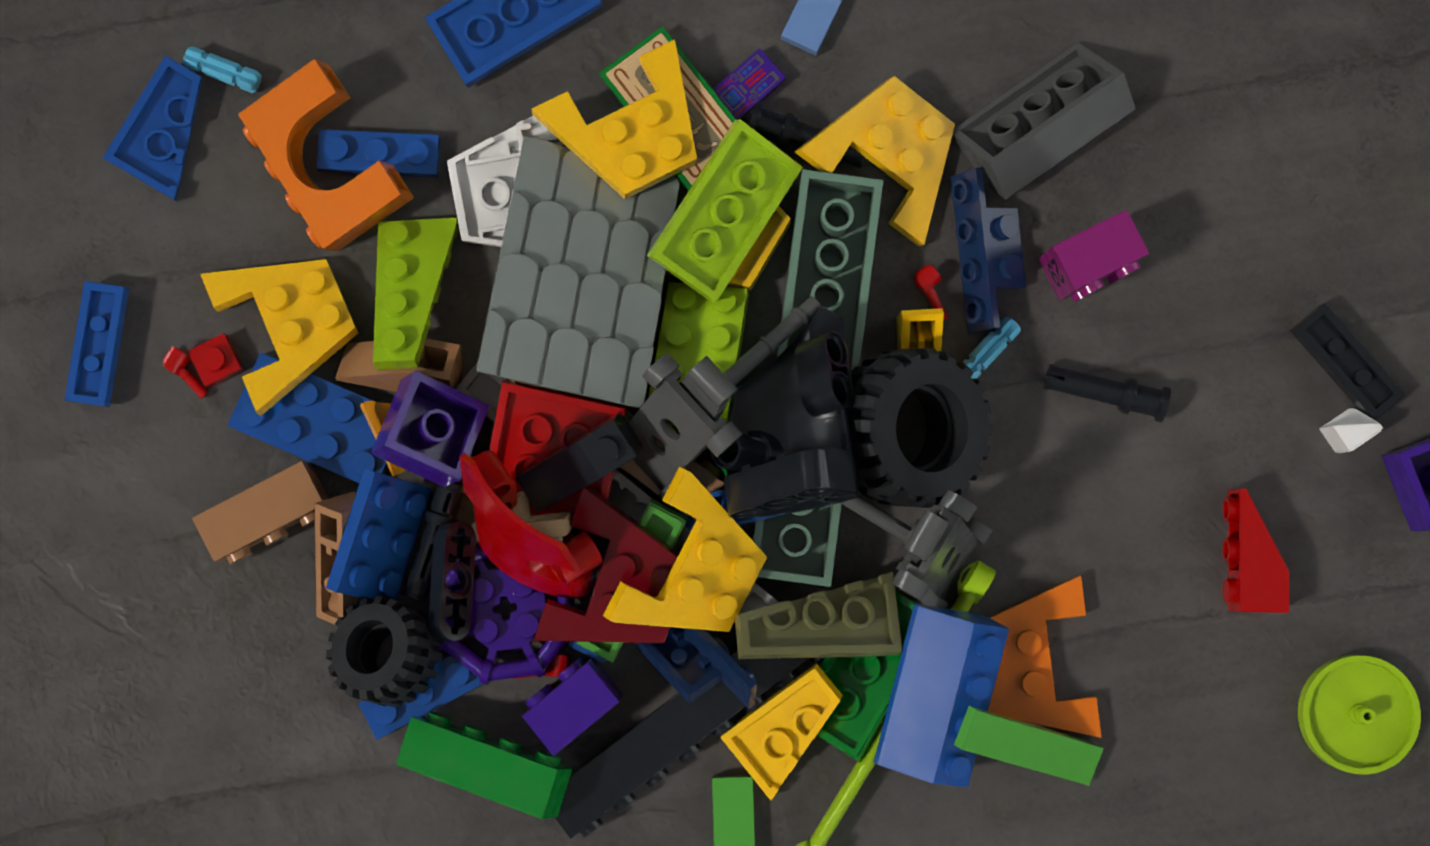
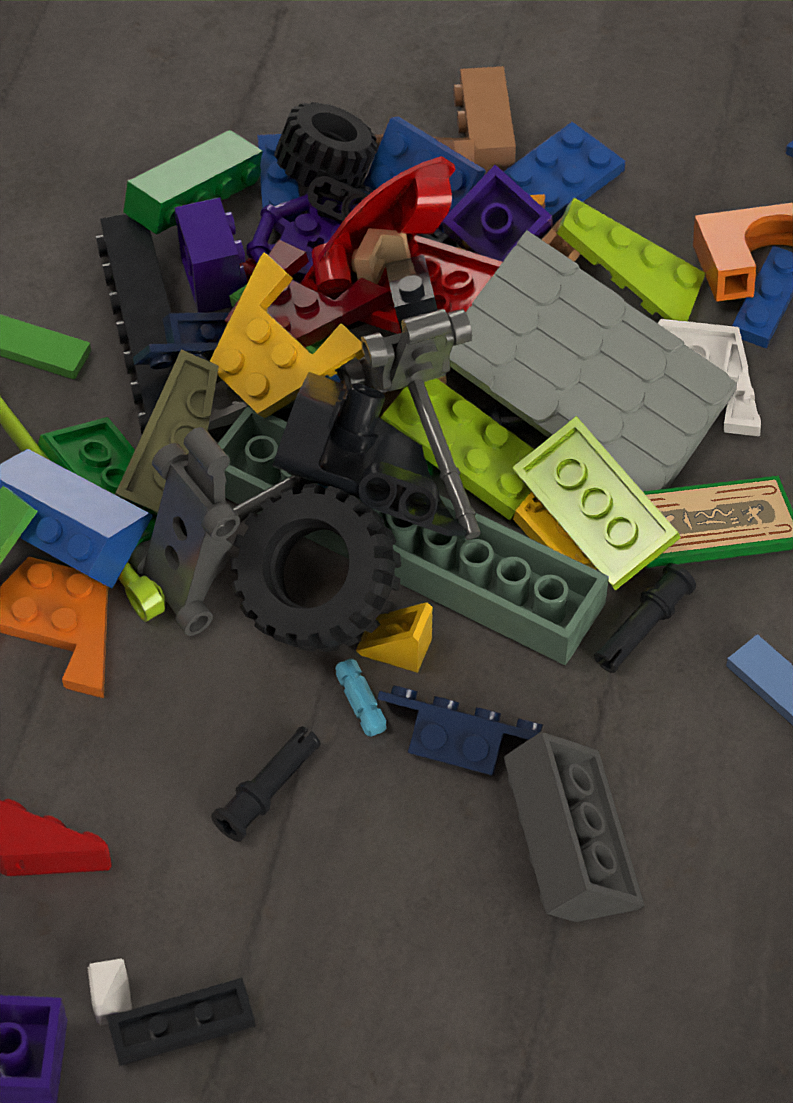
camera: 115 degrees right, 30 degrees down
(96, 344) = (682, 63): blue plate -> none
(175, 362) = (641, 106): red hand -> none
(216, 360) = (632, 135): red plate -> none
(301, 314) = (642, 194): yellow wing -> none
(638, 142) = (694, 468): yellow wing -> none
(749, 84) = (718, 594): dark purple tile -> none
(782, 728) = (99, 399): yellow wing -> none
(898, 136) = (609, 691): yellow wing -> none
(925, 280) = (453, 667): red hand -> none
(1098, 253) = (406, 803): magenta brick -> none

